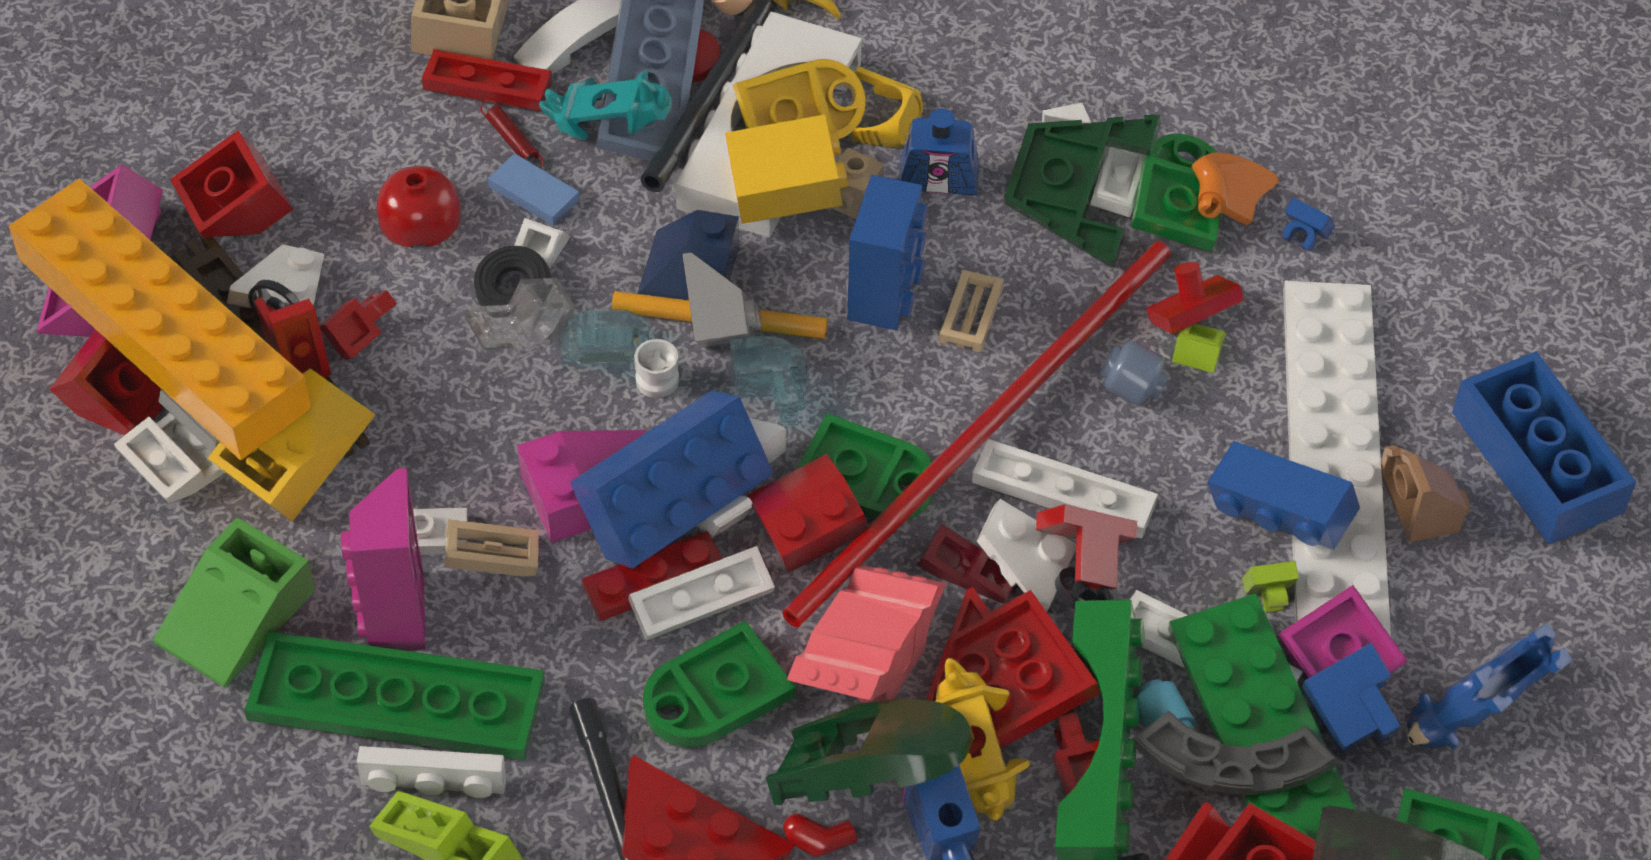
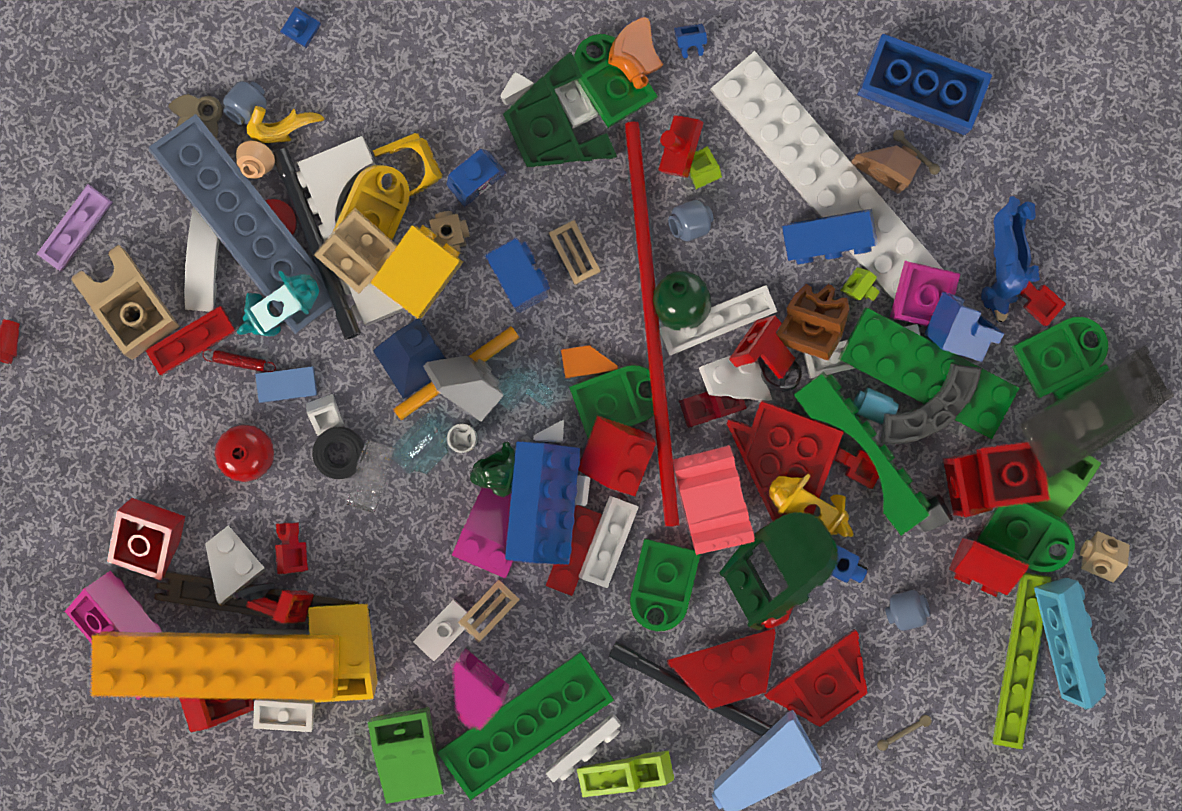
camera: 40 degrees left, 35 degrees up
(649, 407) = (495, 471): none -> dark green hair
(738, 101) = (356, 250): none -> tan slope
(868, 408) = (585, 361): none -> orange tile
(1044, 426) = (682, 300): none -> dark green cylinder
(1176, 570) = (814, 322): none -> dark orange plate
(1478, 548) = (899, 136): none -> dark tan hinge
(1483, 776) = (1042, 303): none -> red plate

